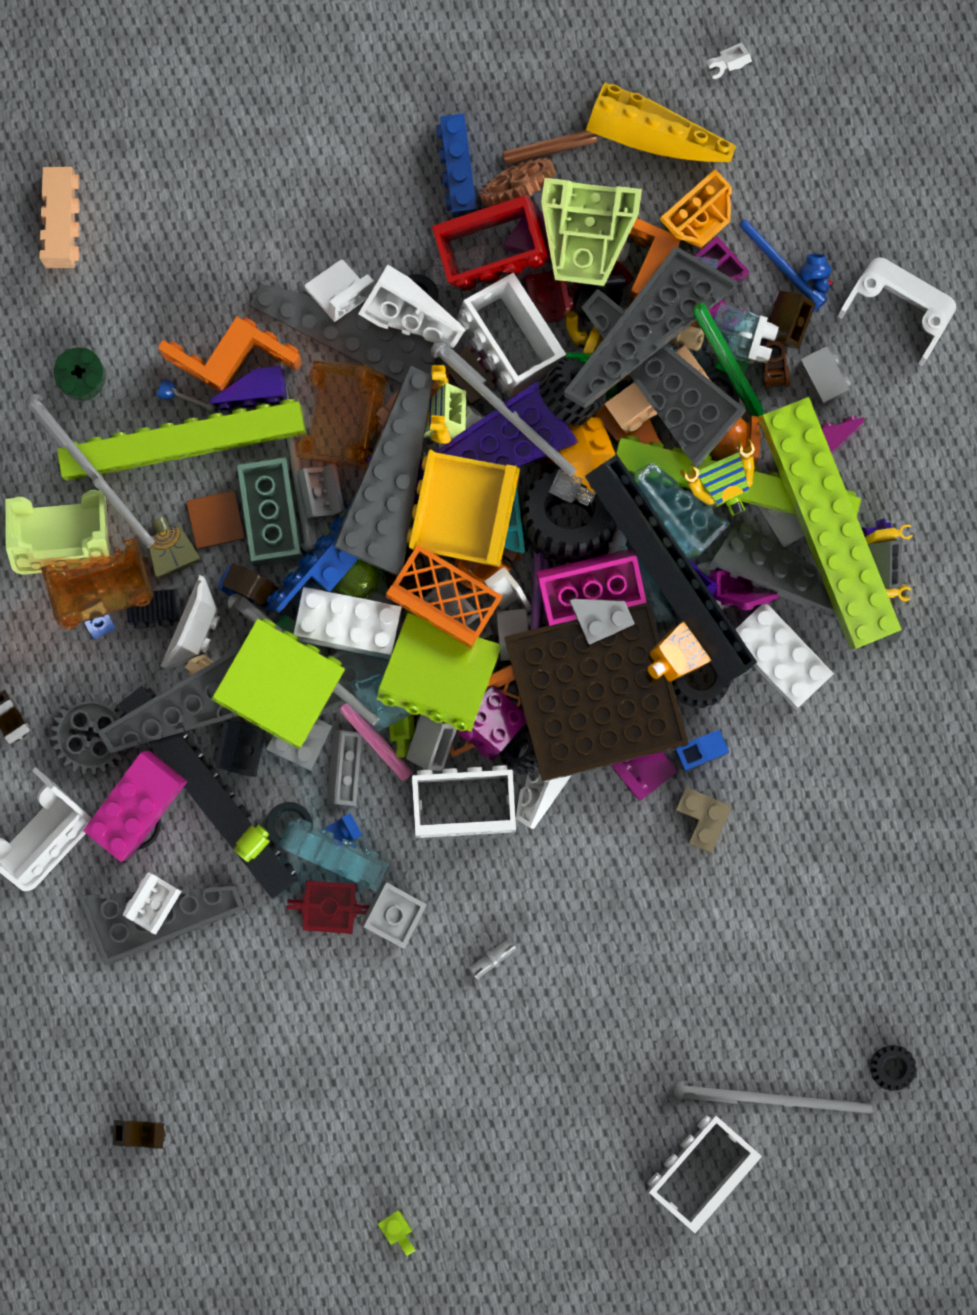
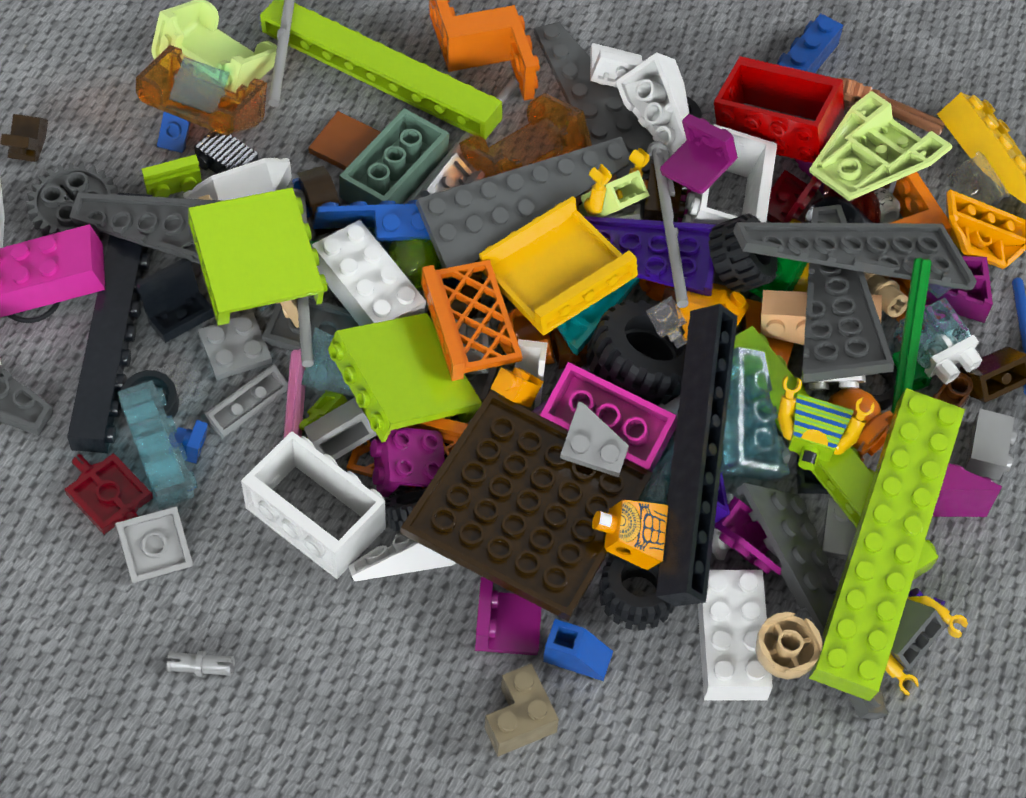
camera: 35 degrees right, 25 degrees down
(87, 577) = (199, 85): none -> clear light blue piece
(144, 649) = (172, 176): none -> lime plate
(168, 391) = (408, 32): hinge -> none
(171, 549) = (286, 131): olive torso -> none
(252, 842) = (100, 374): lime brick -> none
(258, 386) = (480, 72): dark purple slope -> none
(483, 344) = (702, 156): none -> magenta bracket
(515, 615) = (517, 386): none -> light orange brick
(660, 168) = (979, 181): none -> clear plate
(833, 637) = (788, 645): none -> tan cylinder

